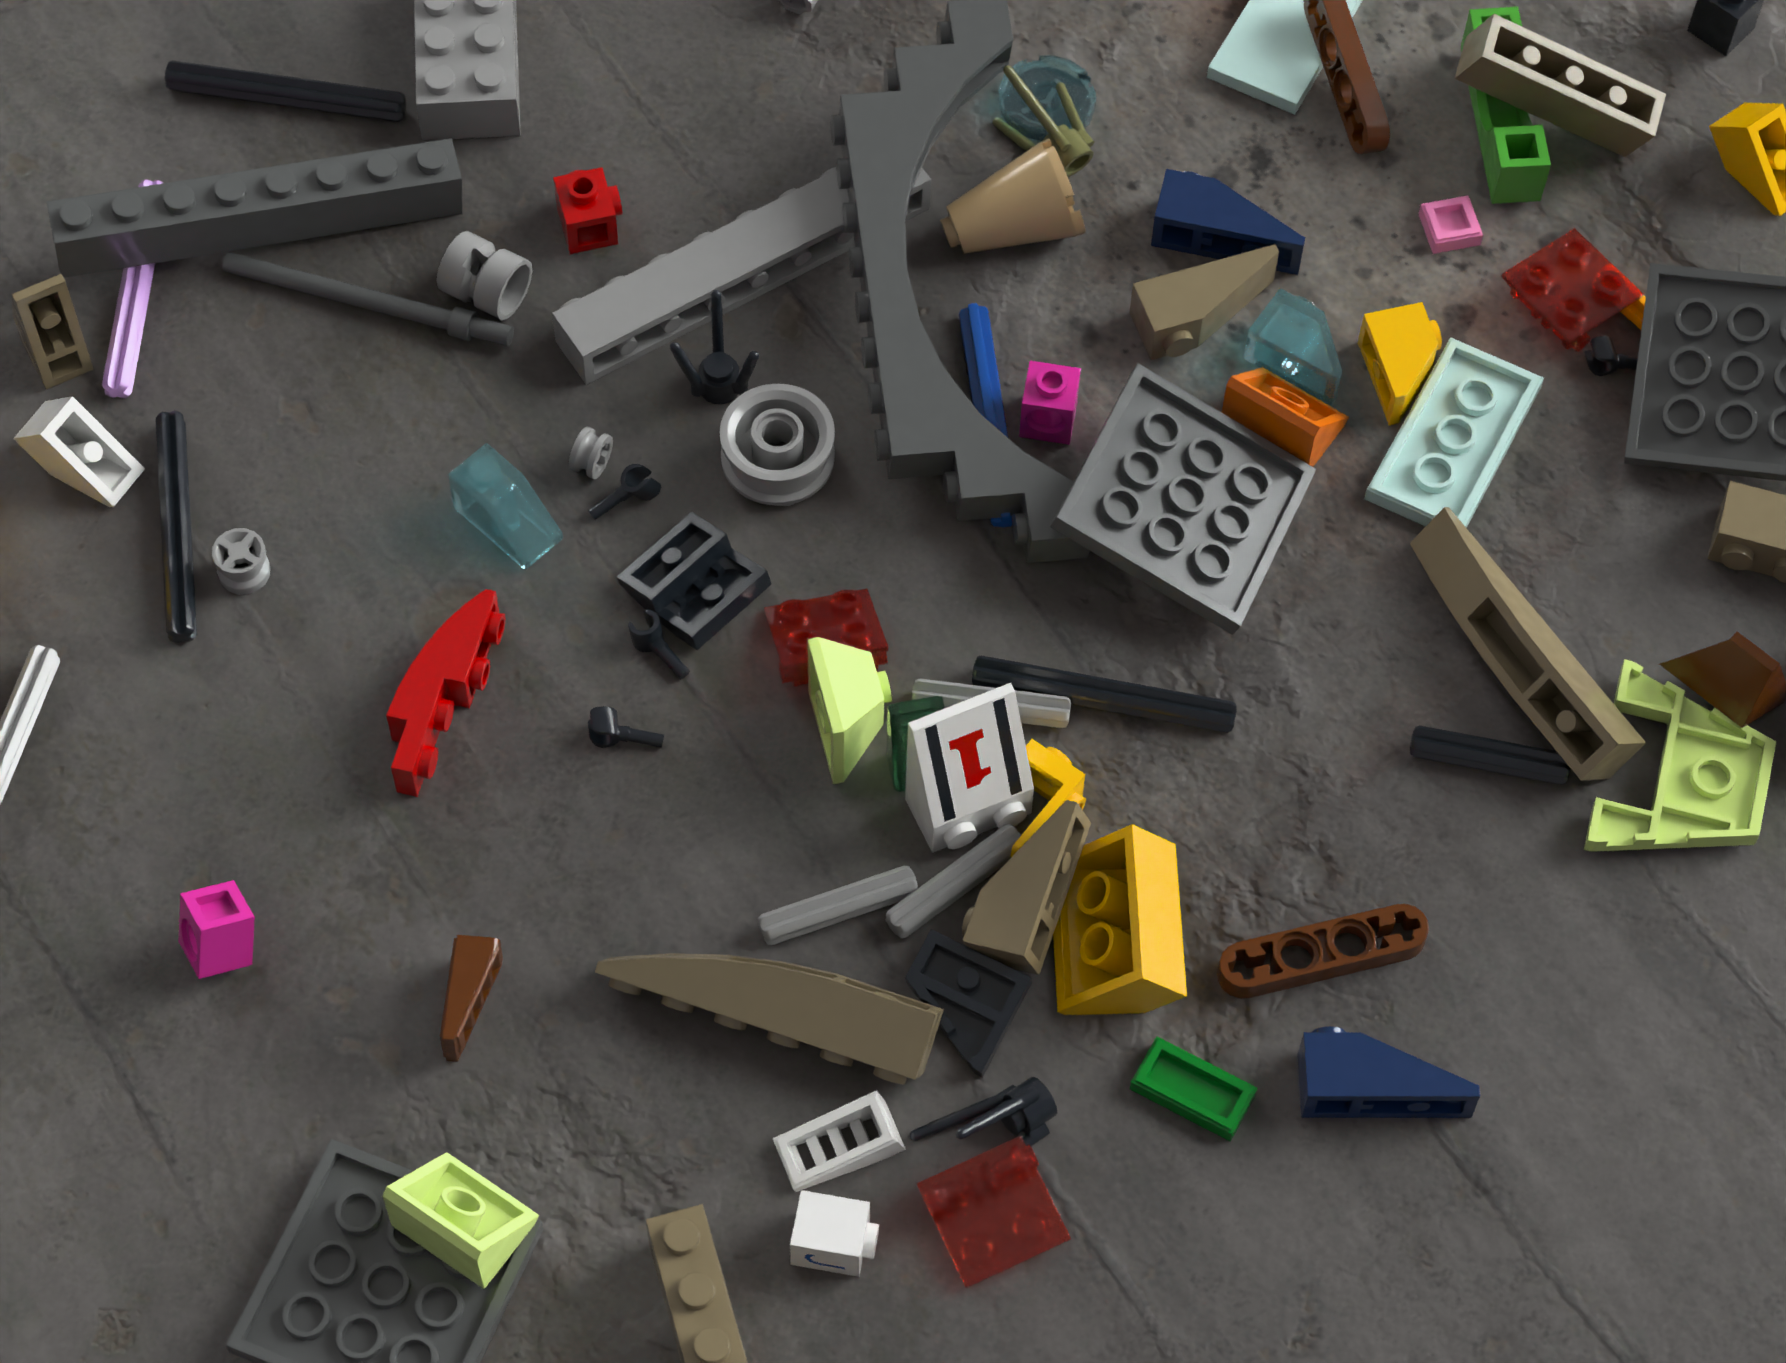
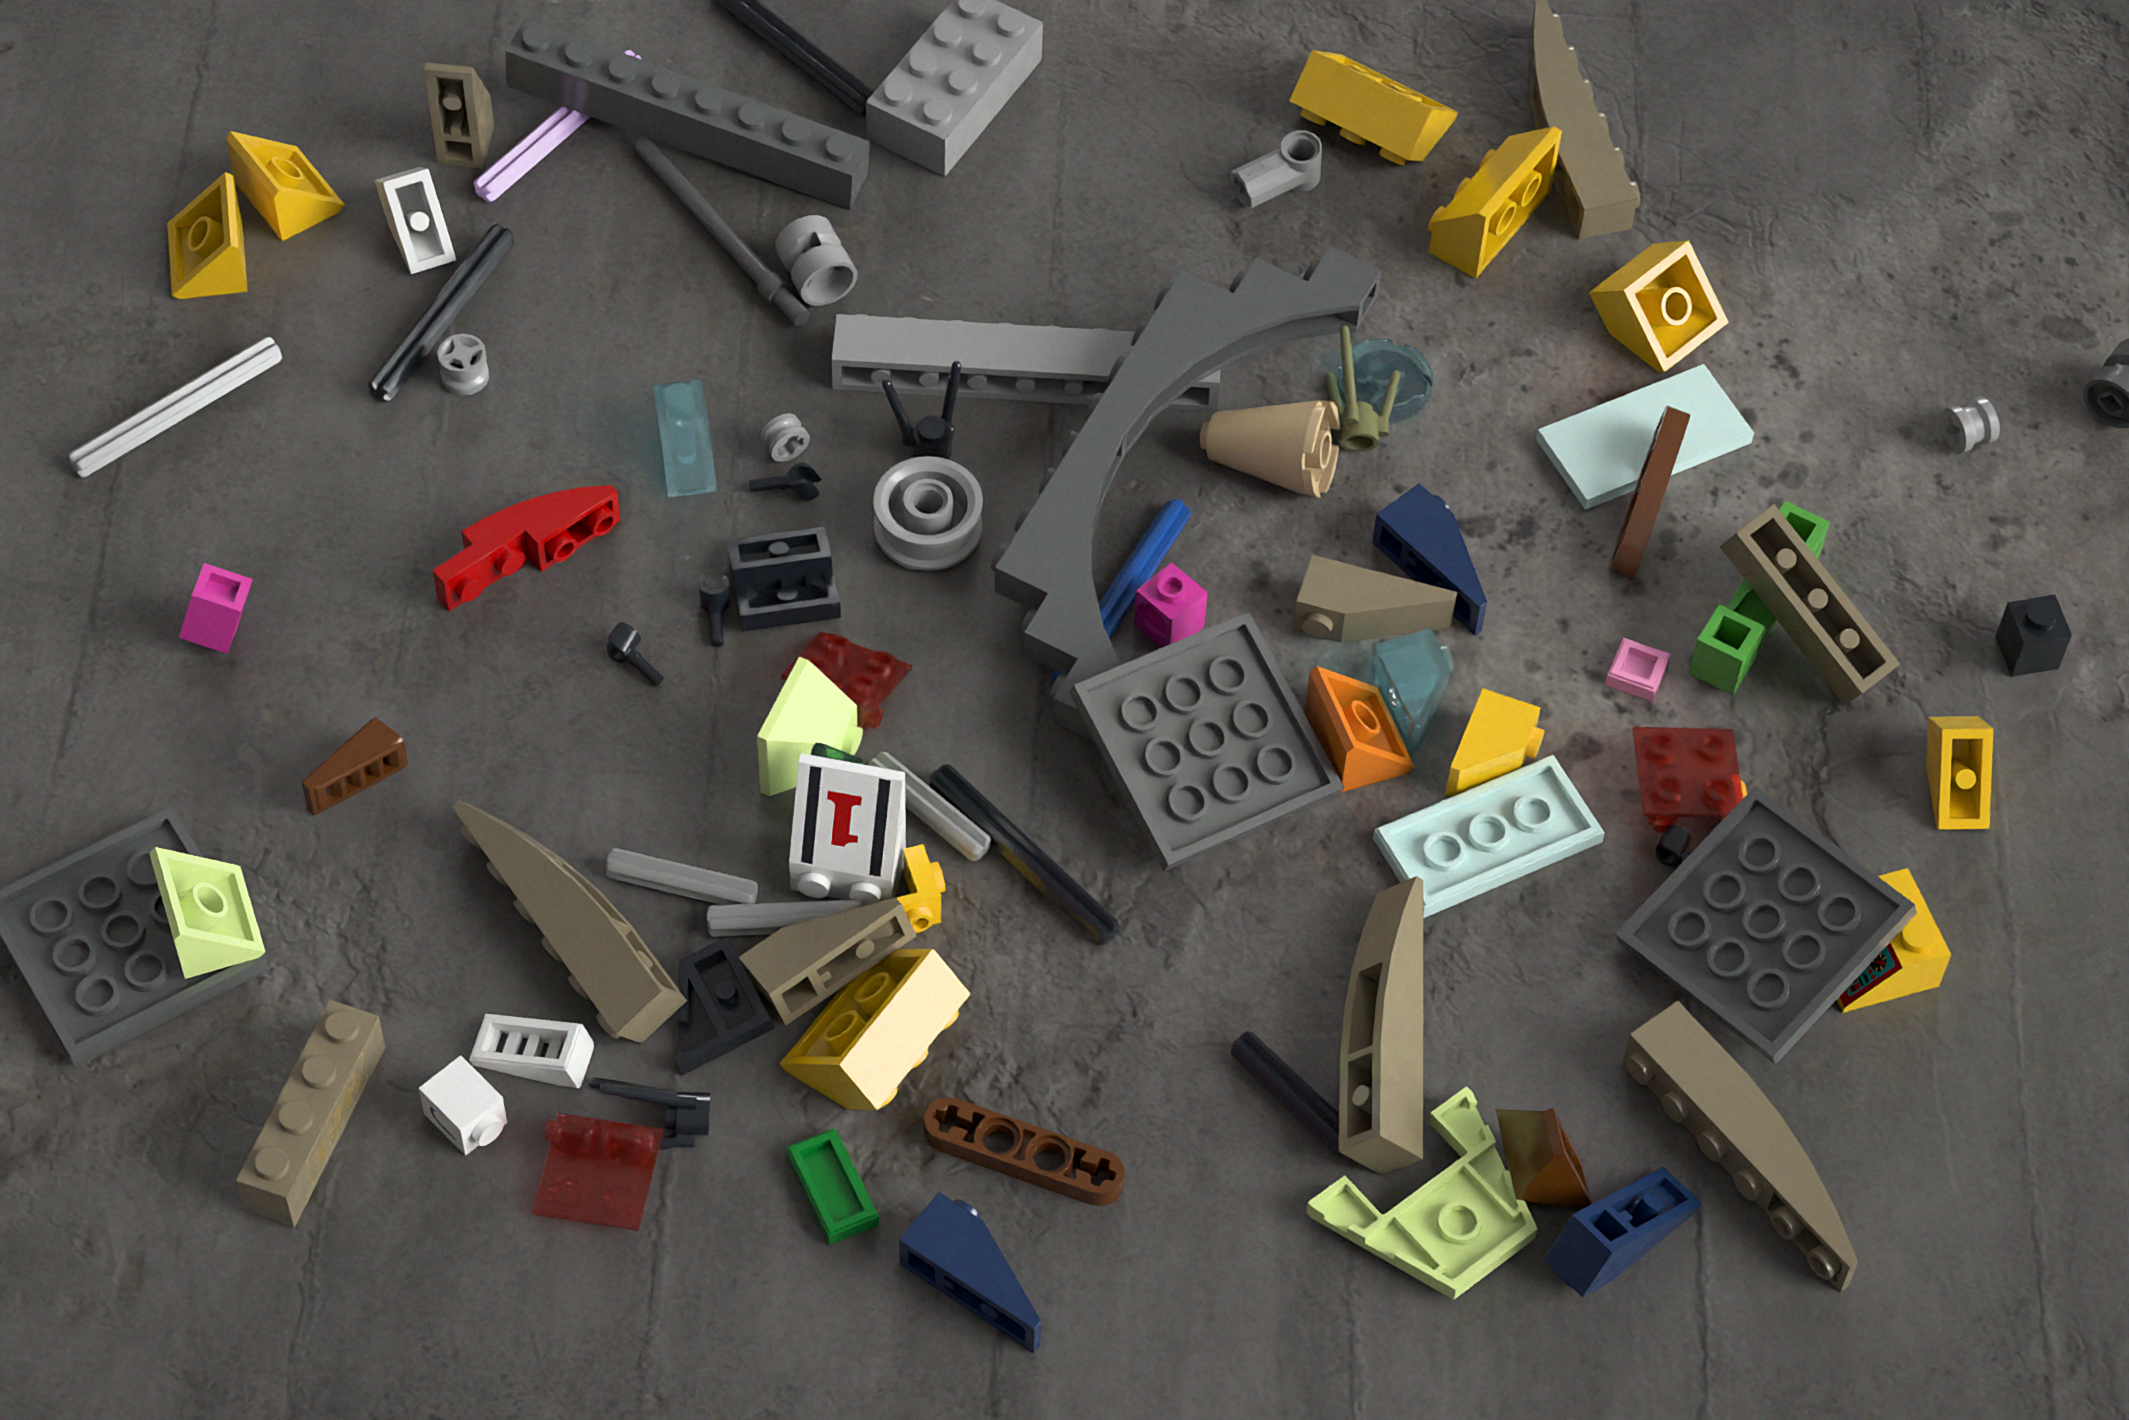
camera: 35 degrees right, 5 degrees down
(587, 209) = (938, 257): red brick -> none

